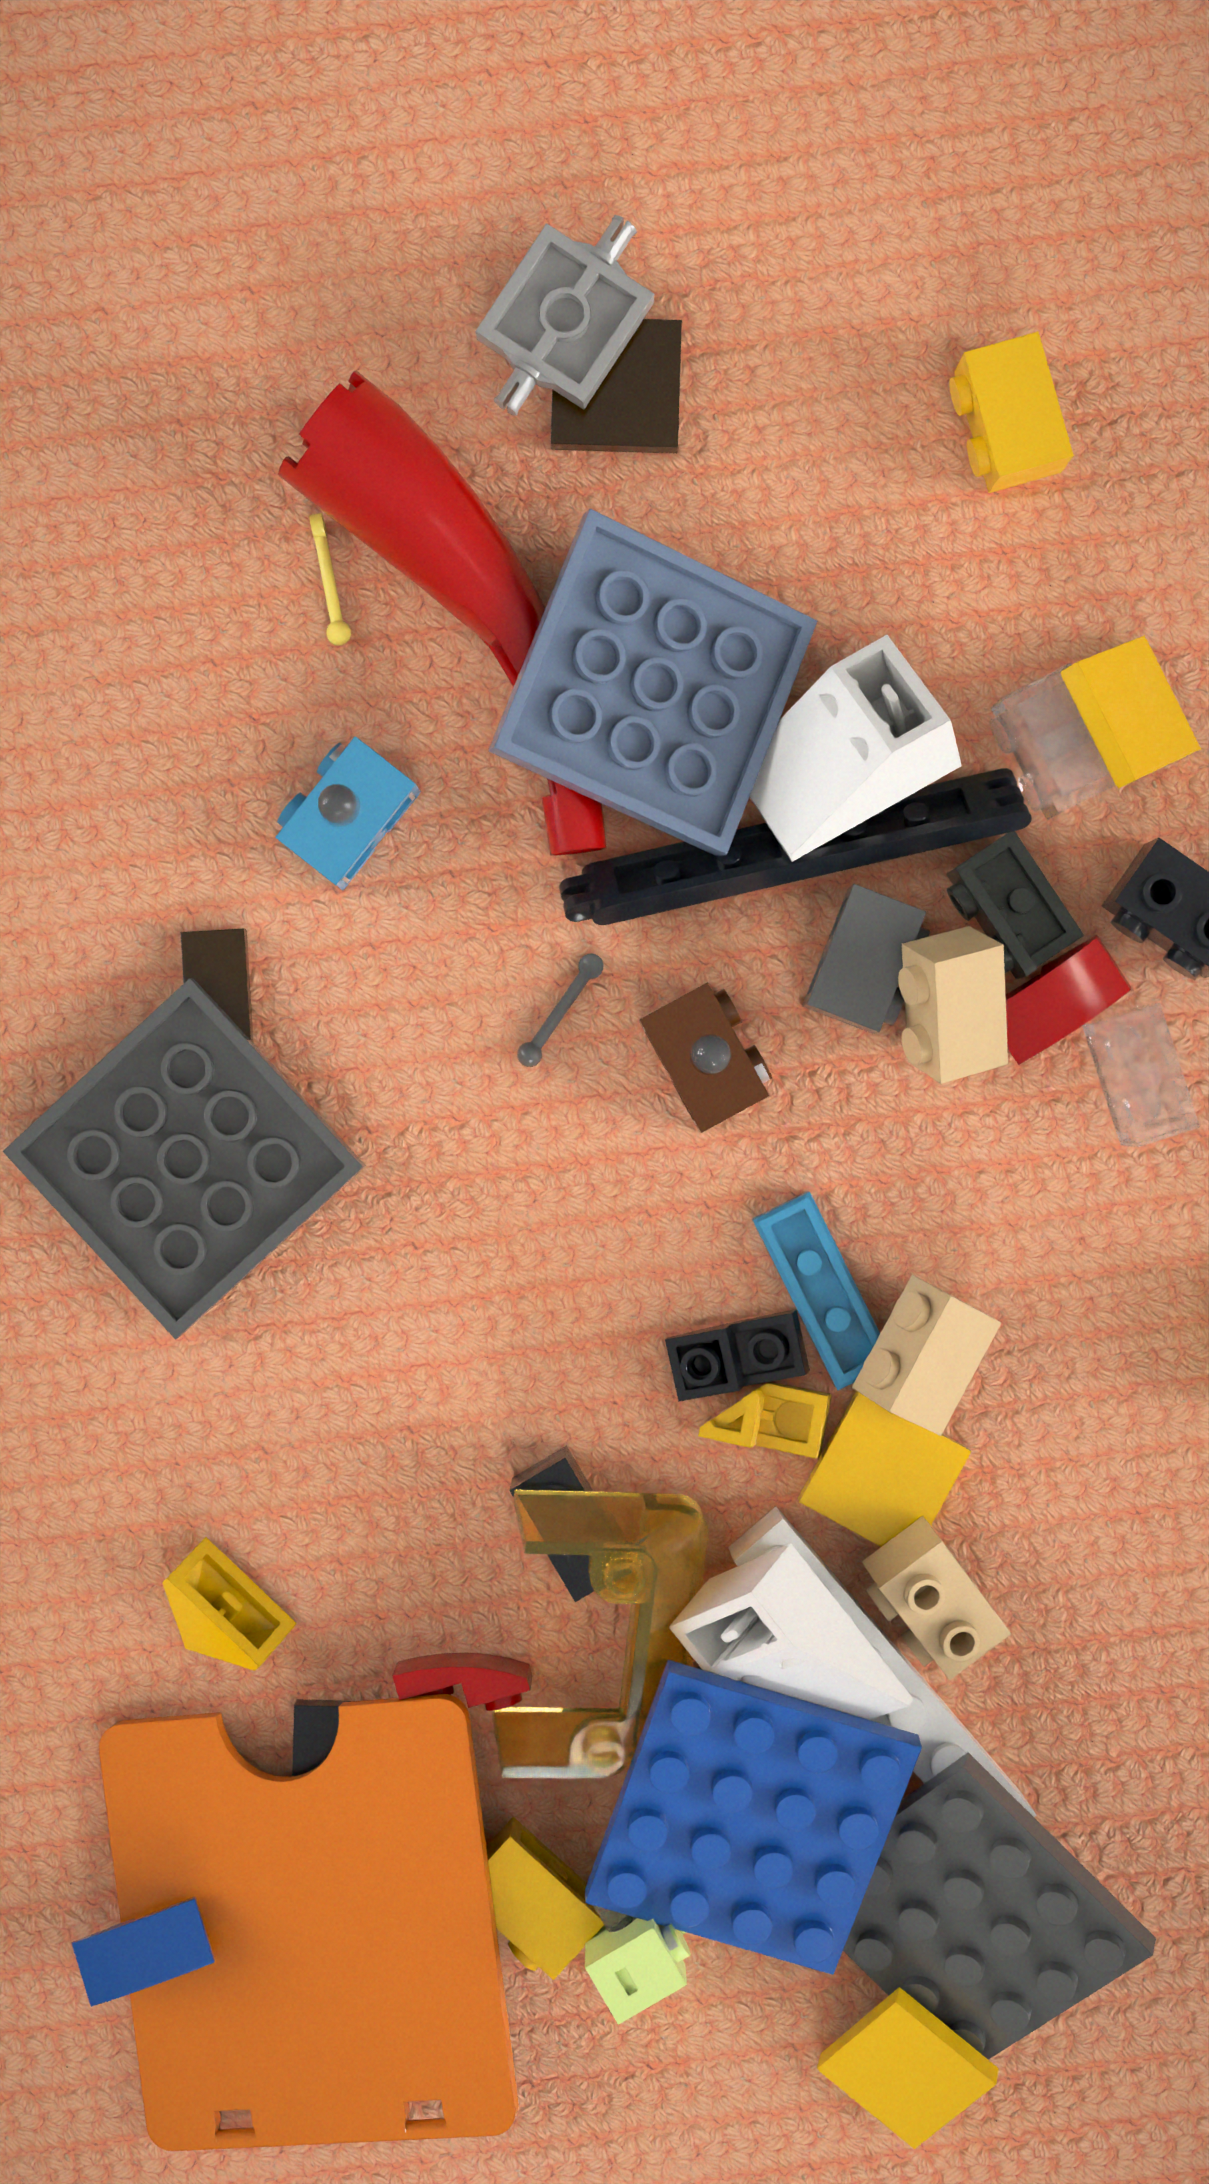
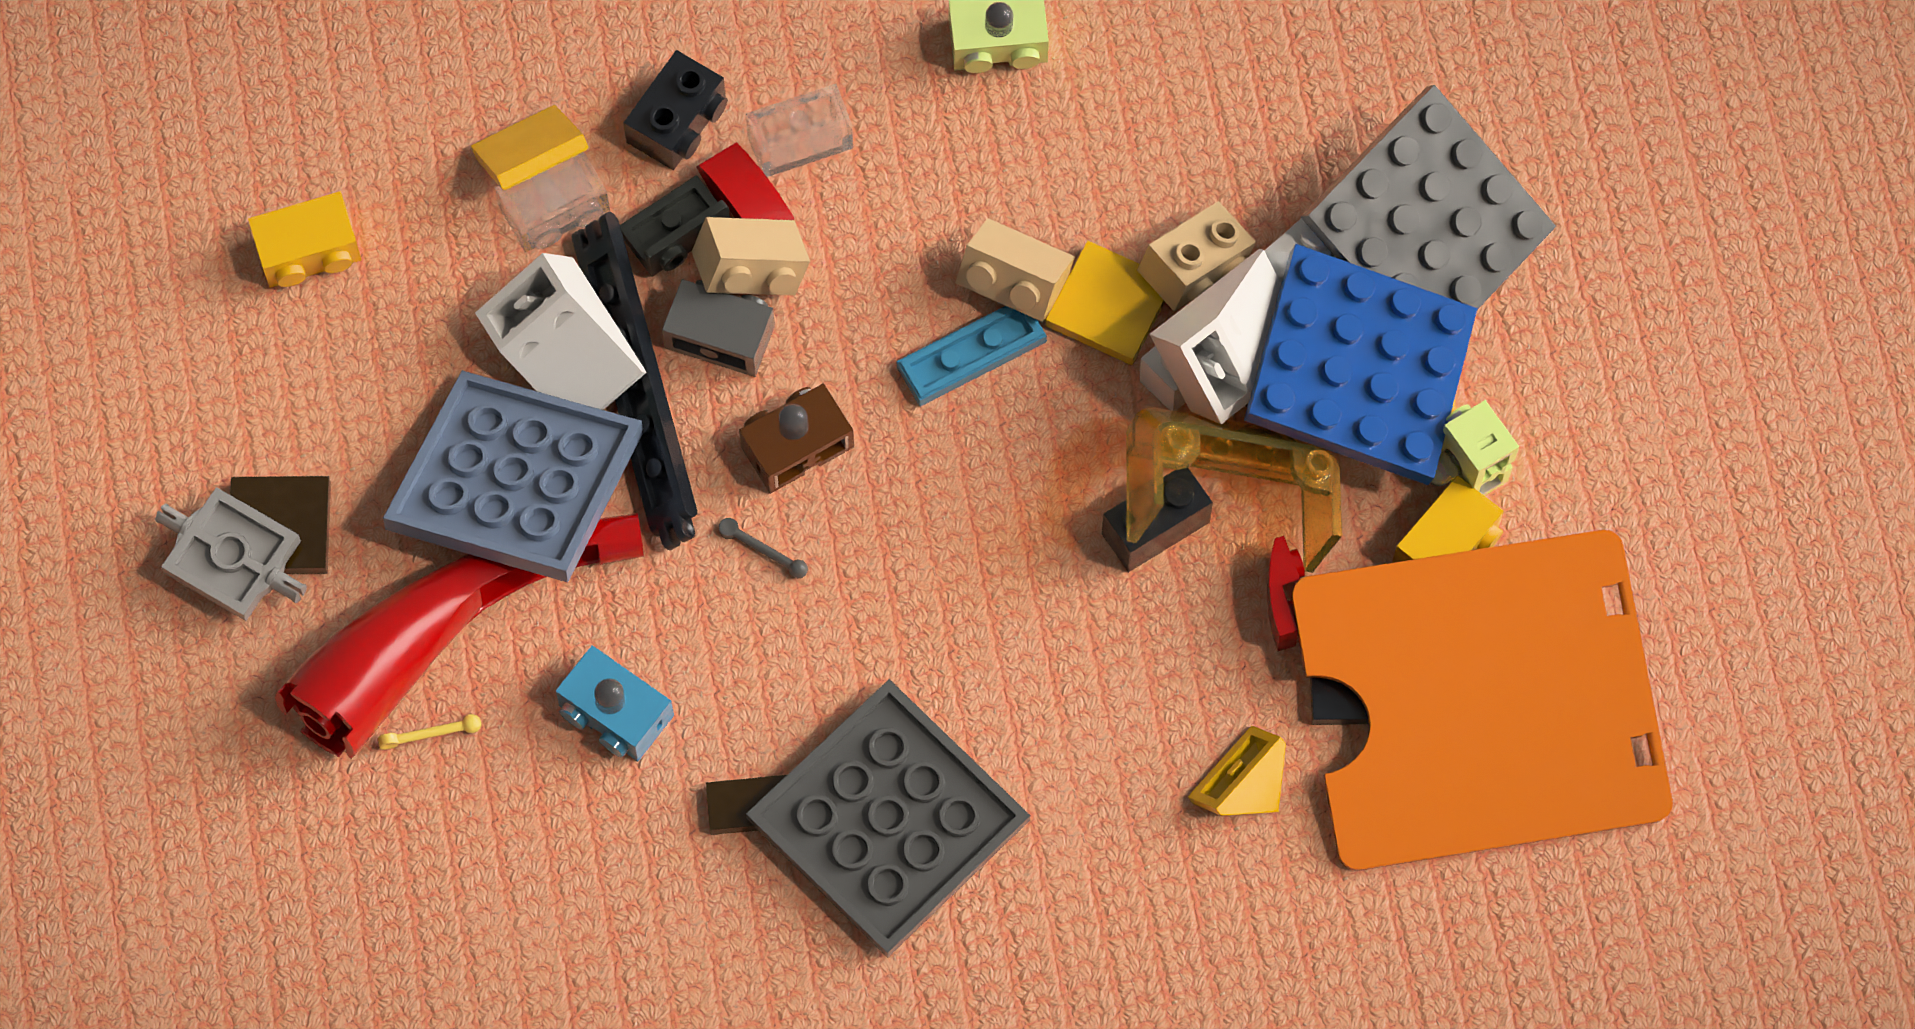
camera: 90 degrees left, 20 degrees down
(143, 1952) = (1510, 816): blue slope -> none
(737, 1355) = (1023, 408): black slope -> none
(776, 1419) = (1071, 380): yellow slope -> none
(907, 2068) = (1553, 264): yellow tile -> none

